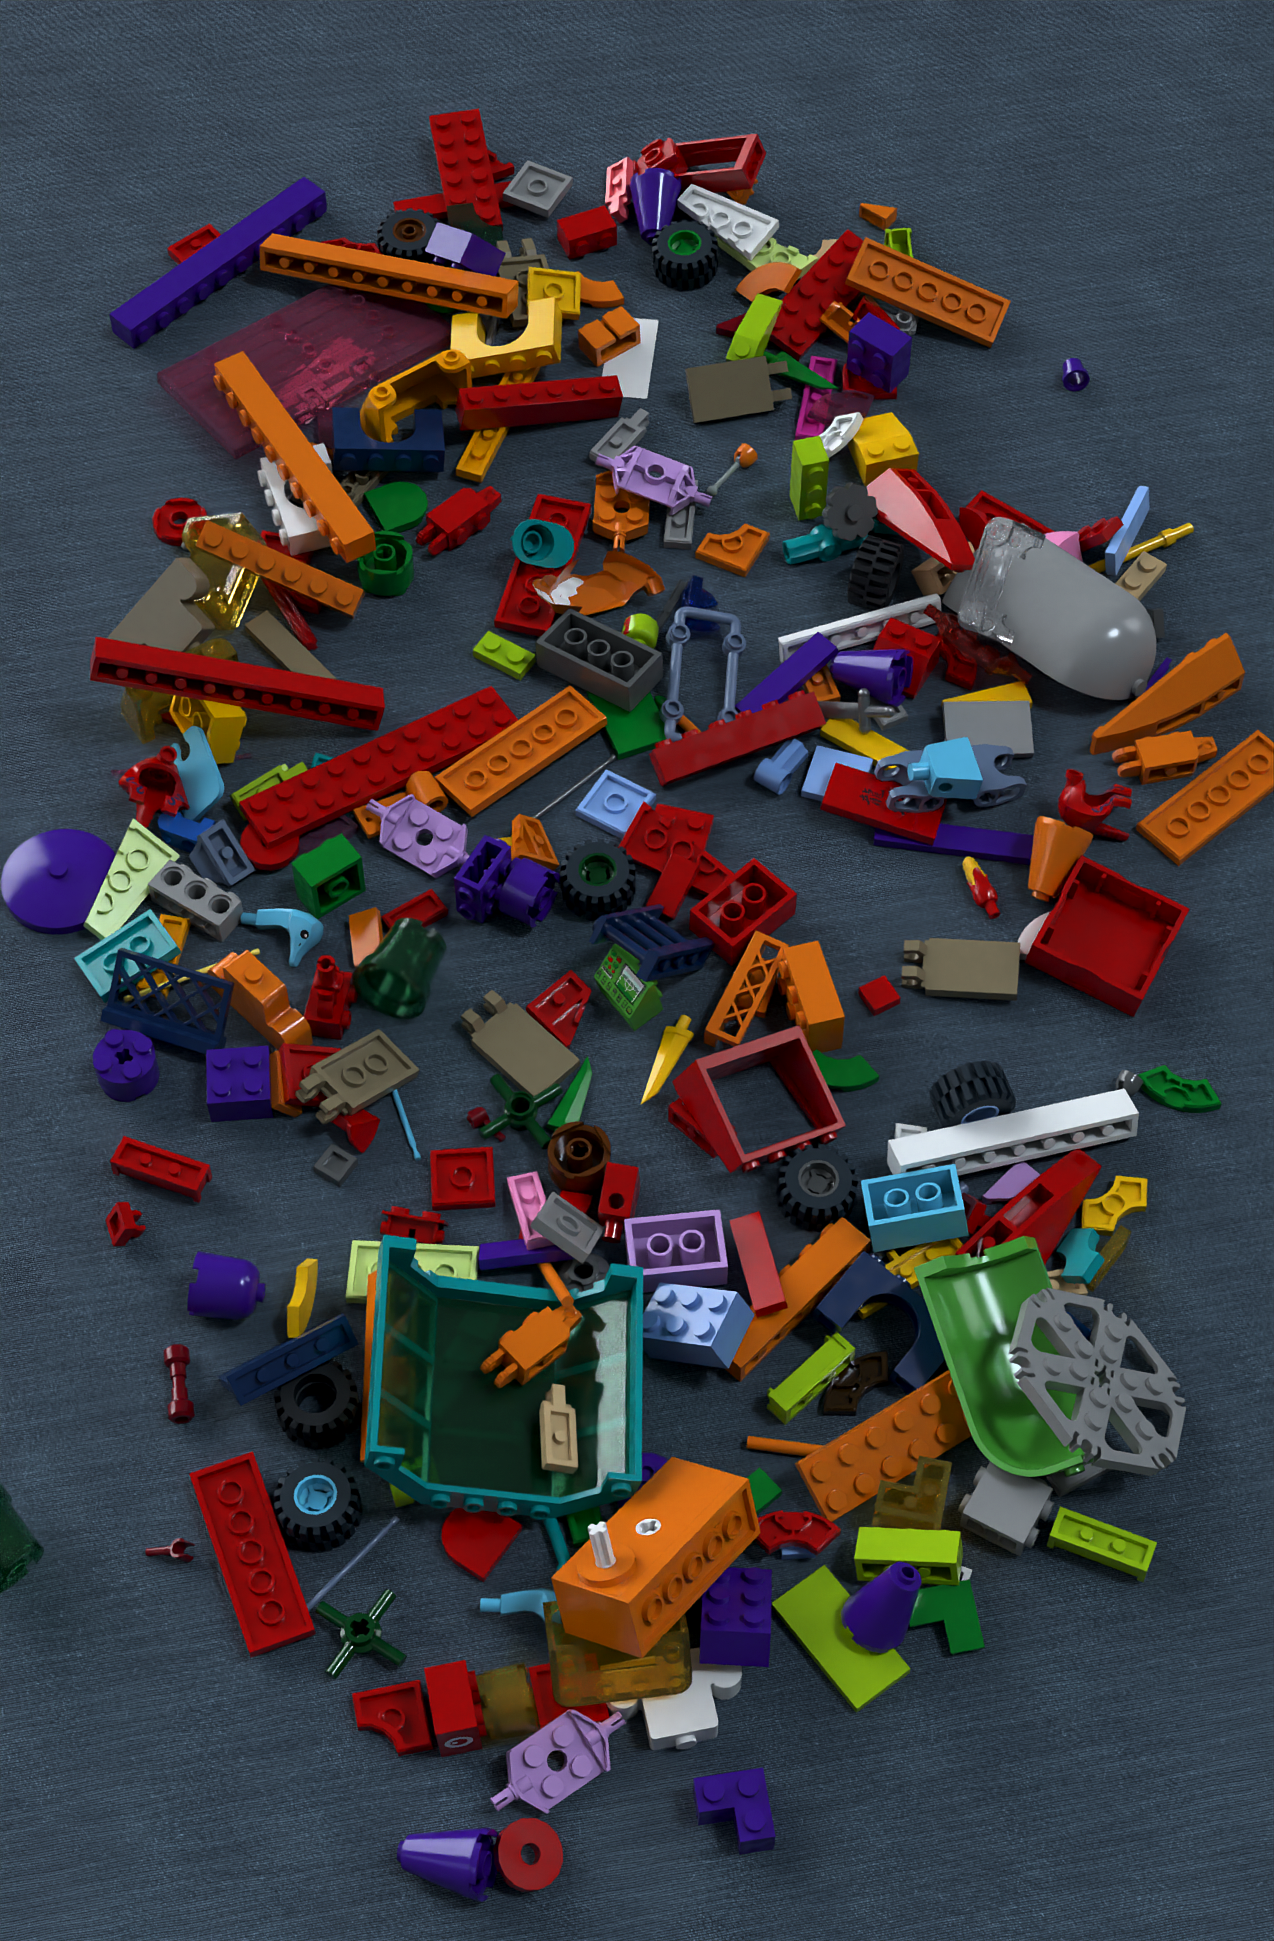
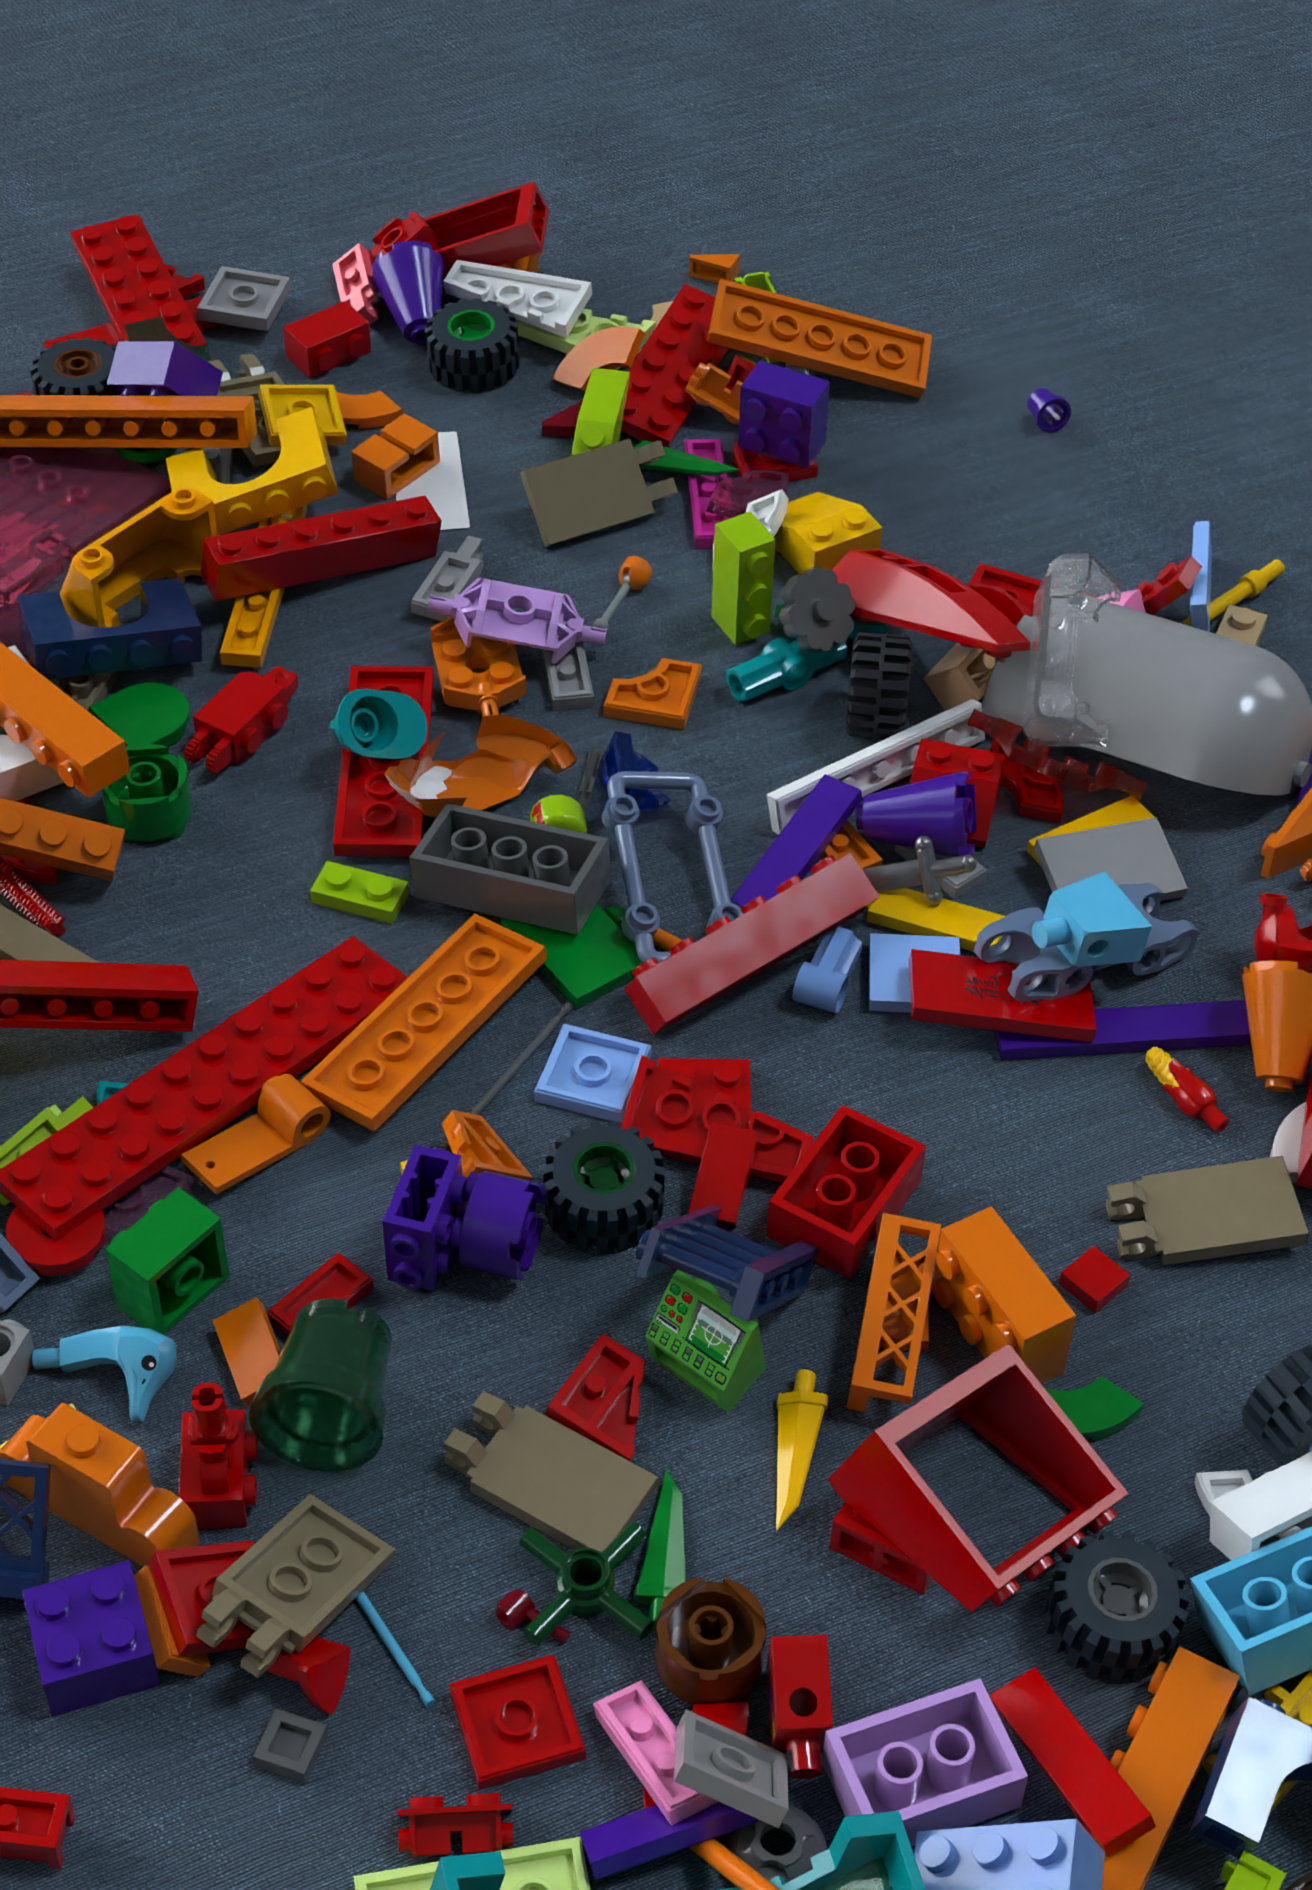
camera: 15 degrees left, 10 degrees down
(410, 818) = (279, 1149): lavender plate -> none

